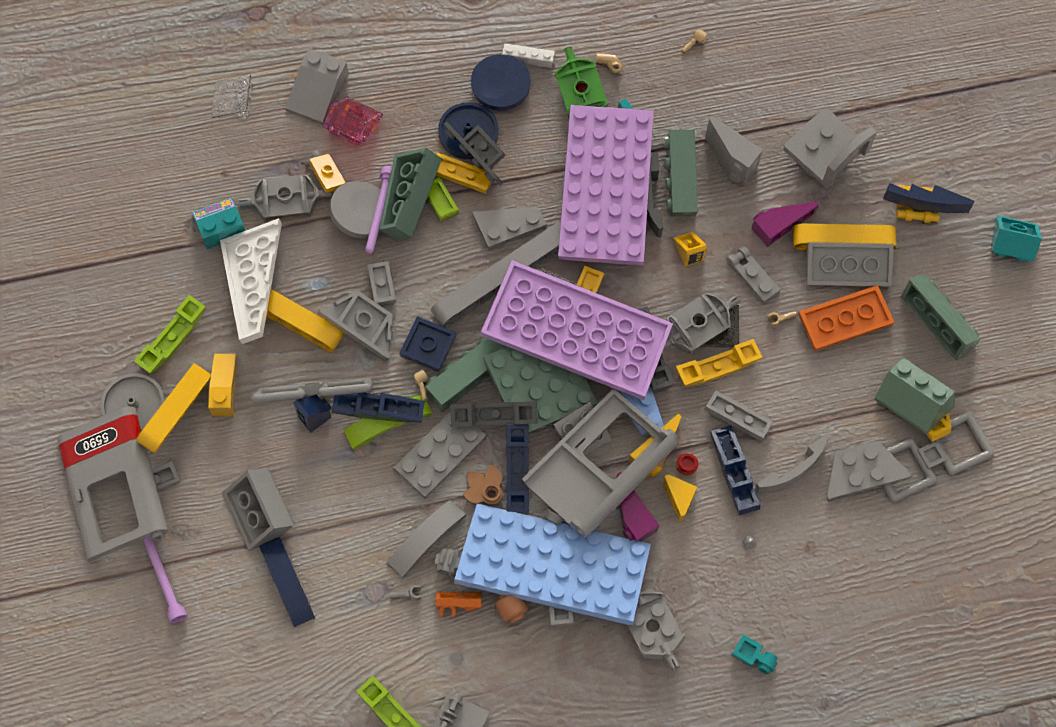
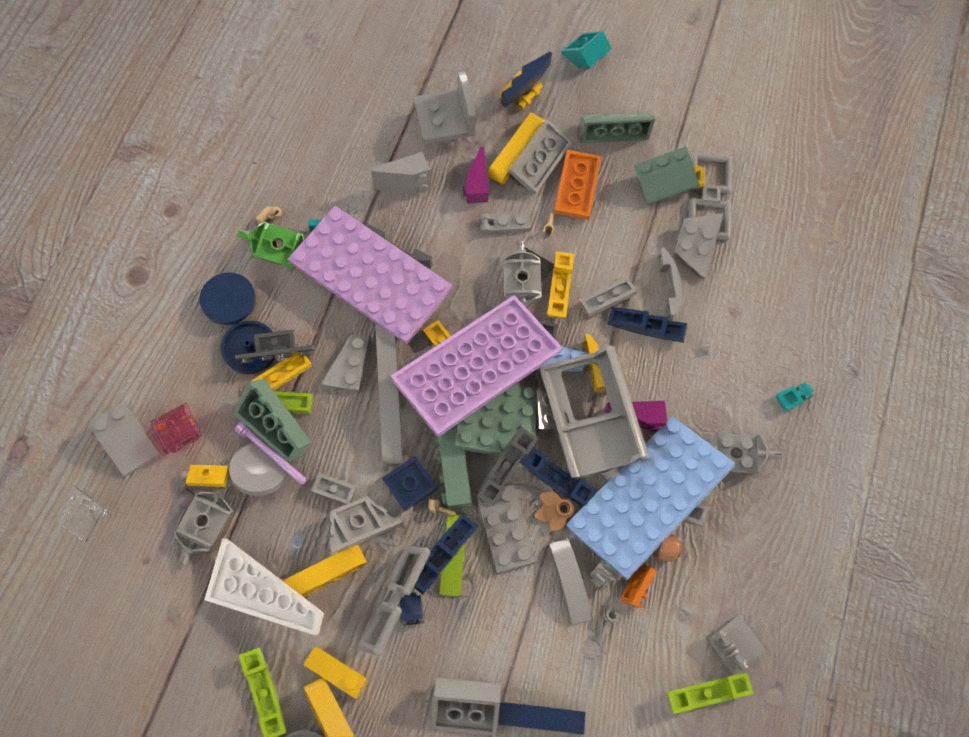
camera: 60 degrees left, 0 degrees up
(218, 222) = (186, 591): teal slope -> none
(530, 55) = (220, 265): white piece -> none
(680, 495) = (647, 373): yellow slope -> none
(681, 172) = (395, 218): sand green wedge -> none
(687, 464) = (624, 354): red plate -> none
(690, 248) = (456, 250): yellow slope -> none
(699, 36) = (294, 143): tan hand -> none

